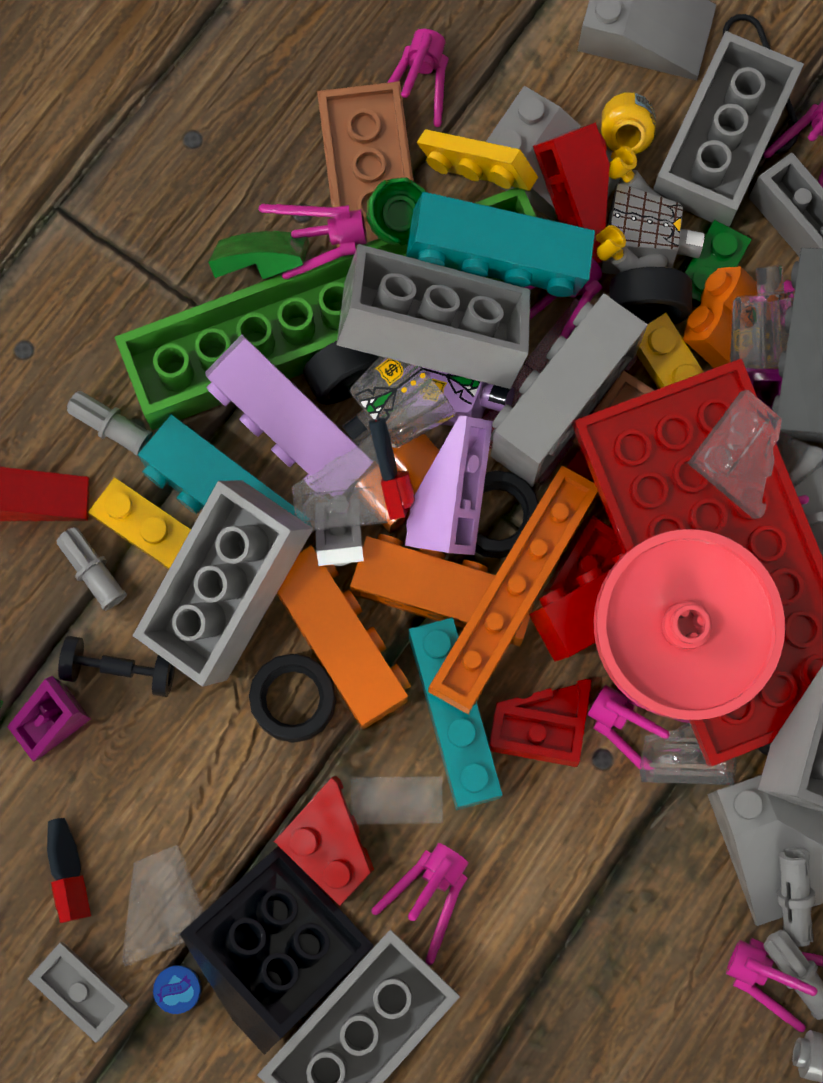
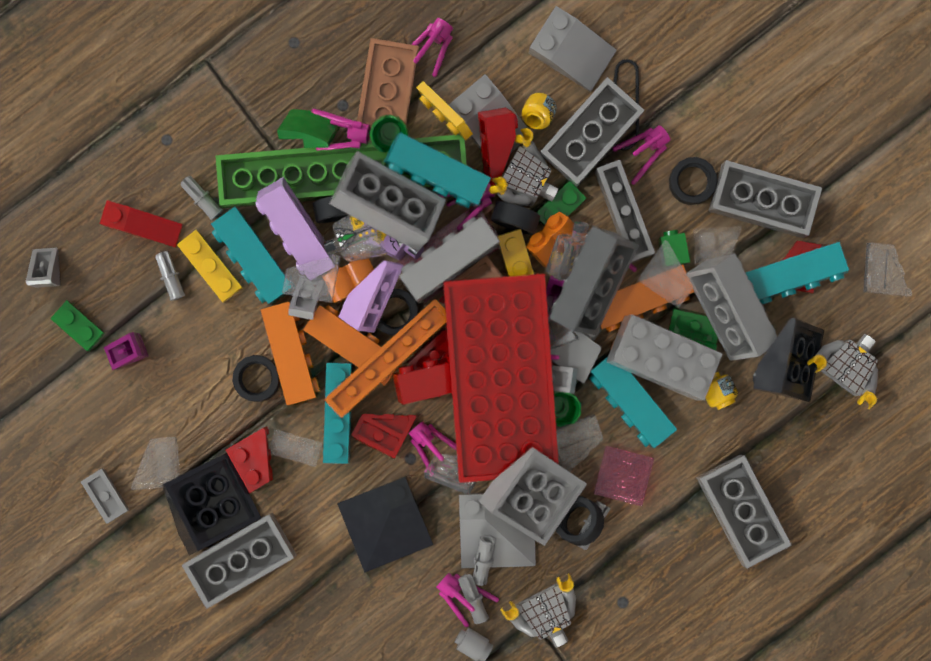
camera: 20 degrees right, 10 degrees up
(65, 867) = (114, 431): piece -> none
(72, 658) = (147, 323): black wheel -> none
(177, 989) = (155, 509): blue tile -> none
(222, 582) = (235, 309): light grey brick -> none
(395, 484) = (341, 284): piece -> none
(443, 870) = (307, 491): dark pink plant -> none
(598, 887) = (385, 524): none -> black slope
(689, 625) = (466, 409): coral dish -> none
(740, 452) = (525, 325): clear wing -> none

